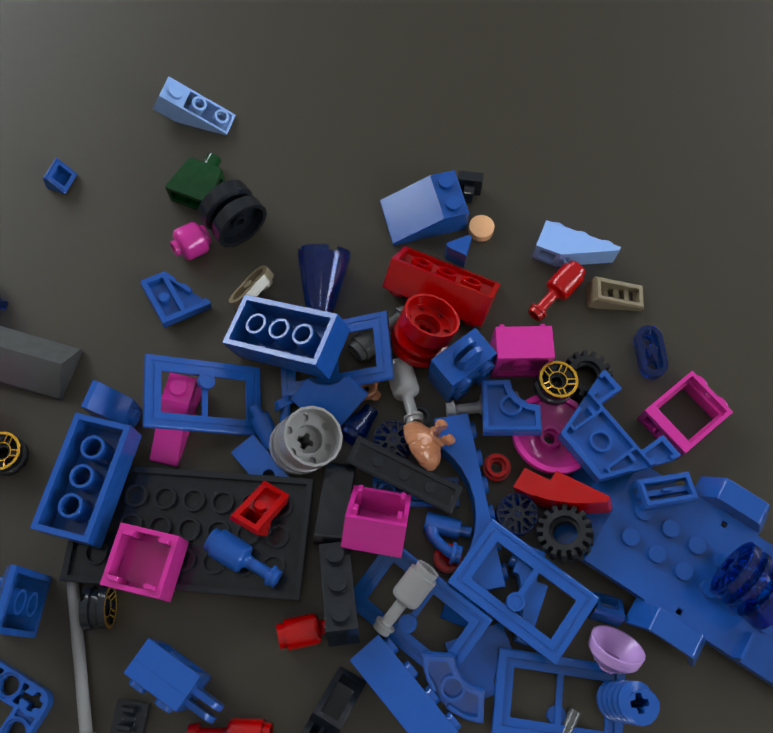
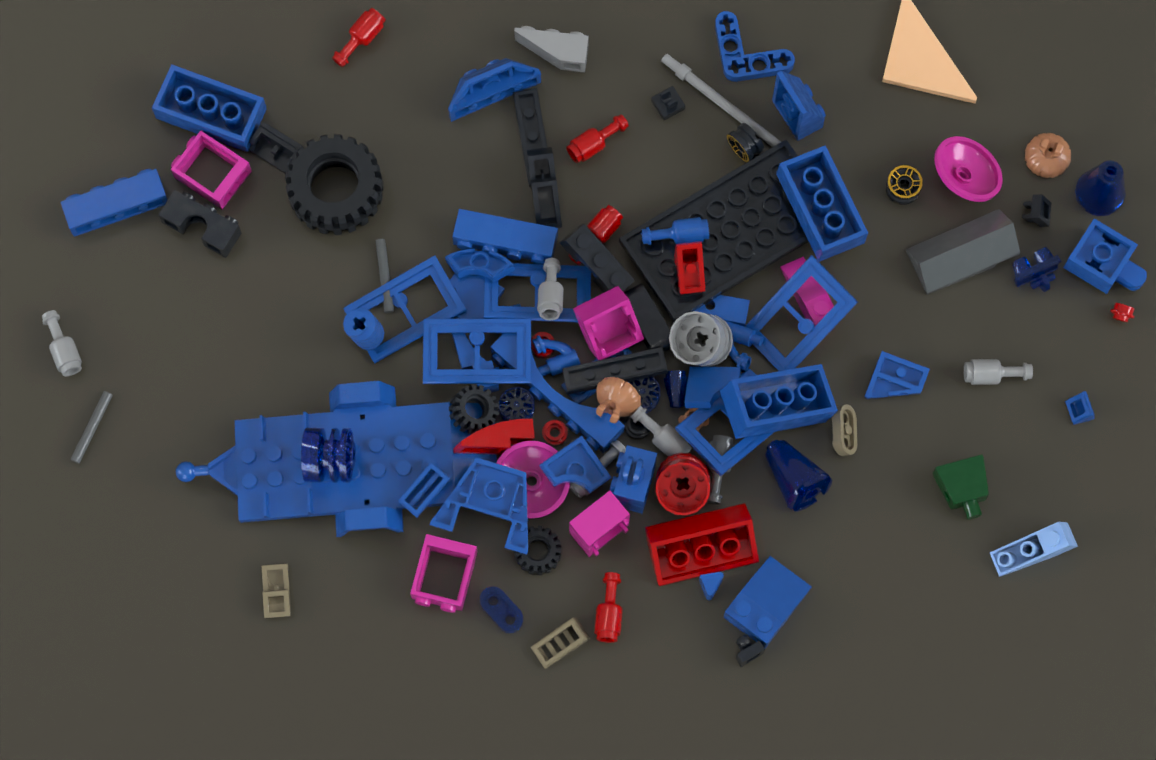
camera: 145 degrees right, 5 degrees up
(94, 246) = (990, 371): none -> light grey piece
(111, 405) = (856, 264): blue slope -> none
(145, 562) = (736, 184): dark pink container -> none
(172, 680) = (657, 137): blue brick -> none
(190, 241) = (924, 430): dark pink head -> none
(232, 213) = (910, 471): black wheel -> none
(481, 228) = (710, 623): light nougat tile -> none
(549, 374) = (549, 505): black wheel -> none
(561, 244) = (631, 651): light blue slope -> none
(608, 610) = (411, 391): blue slope -> none
(615, 650) = (389, 371): lavender piece -> none

